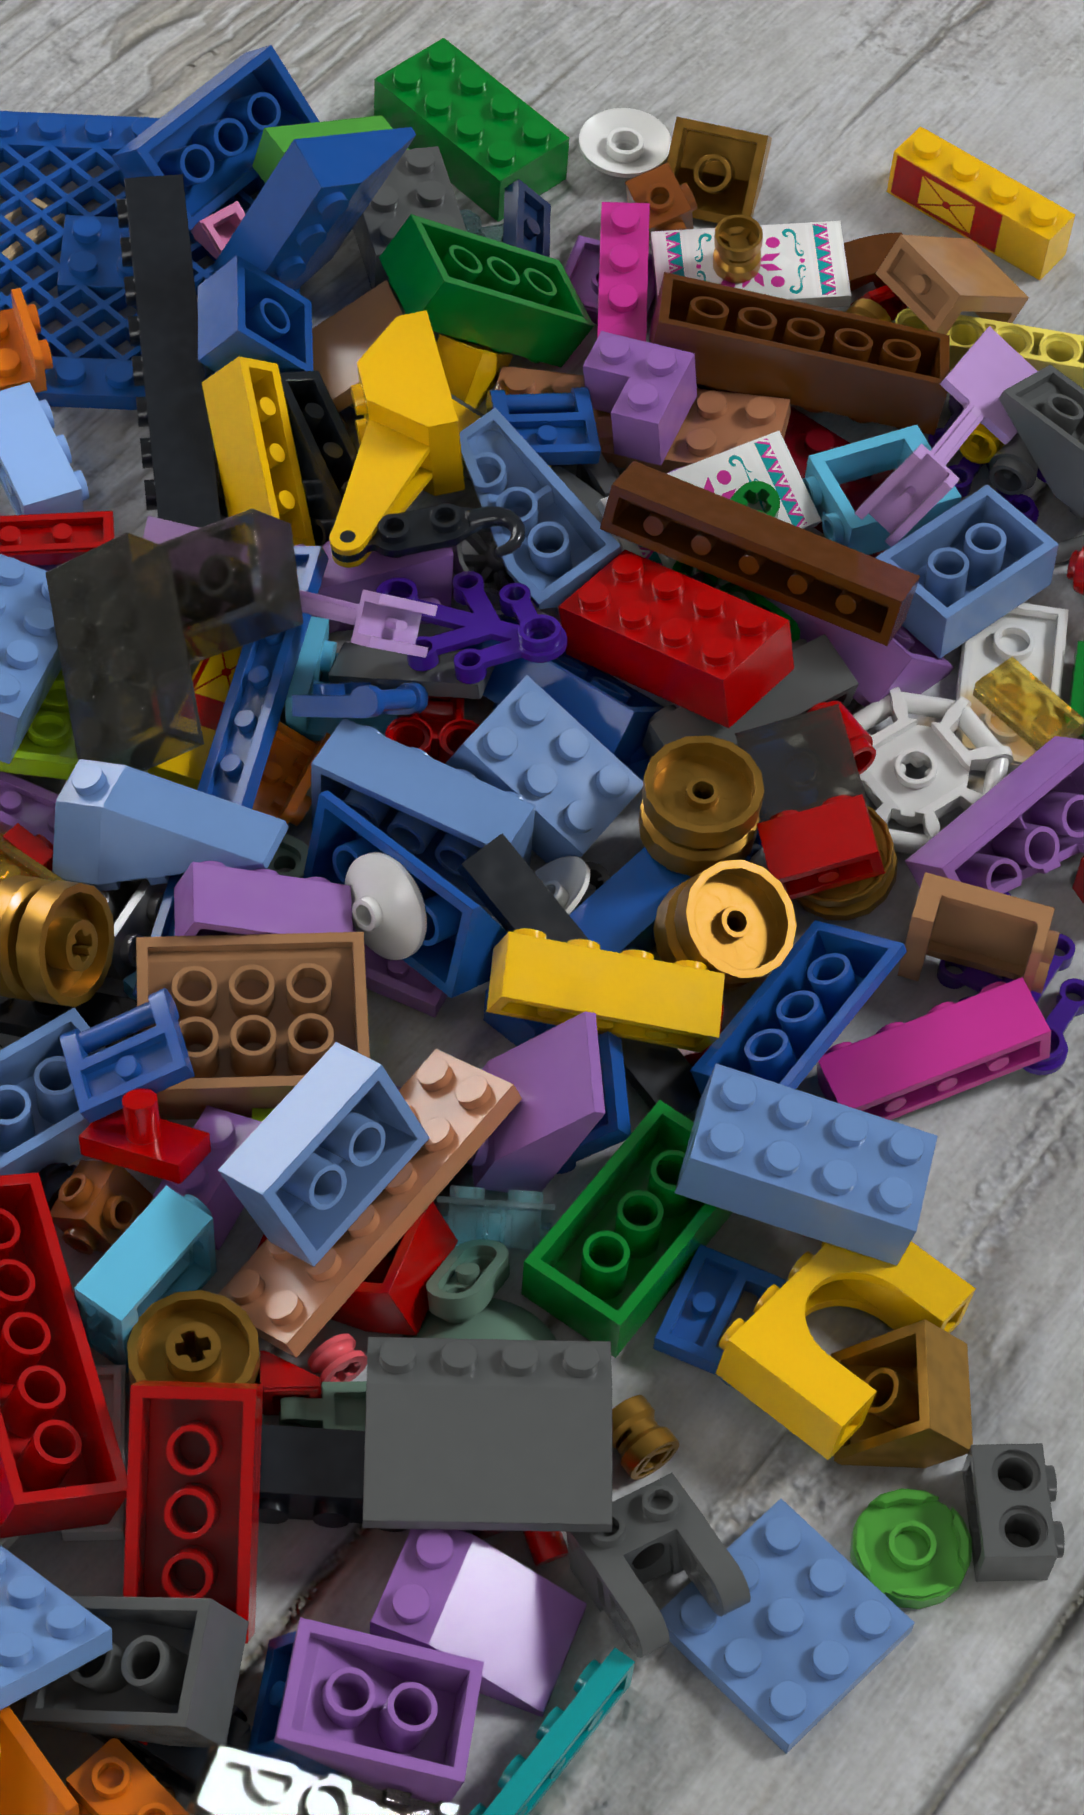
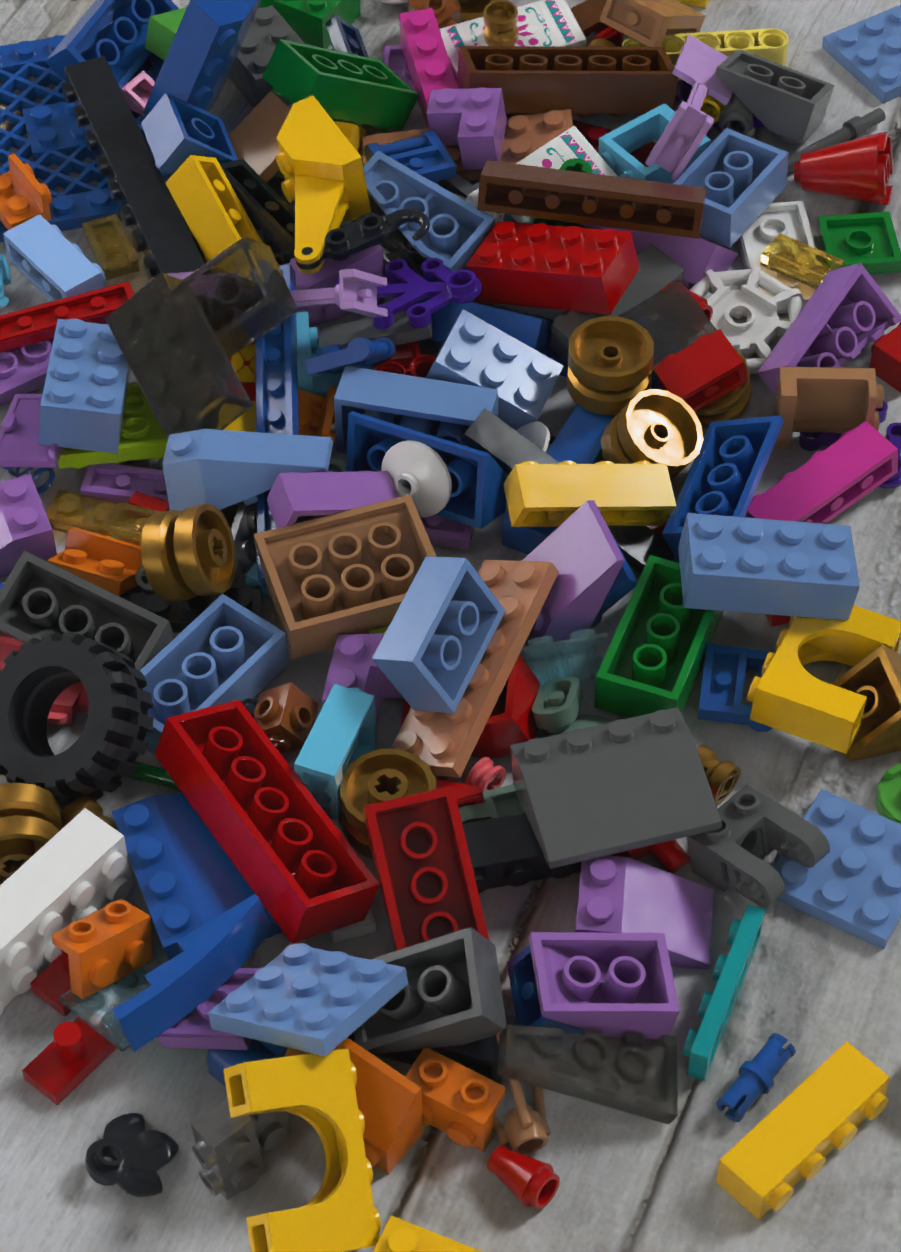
camera: 10 degrees left, 5 degrees down
(112, 449) = (110, 246): none -> clear yellow plate
(143, 1141) = (304, 661): red tile -> none
(146, 1061) = (281, 615): blue plate -> none

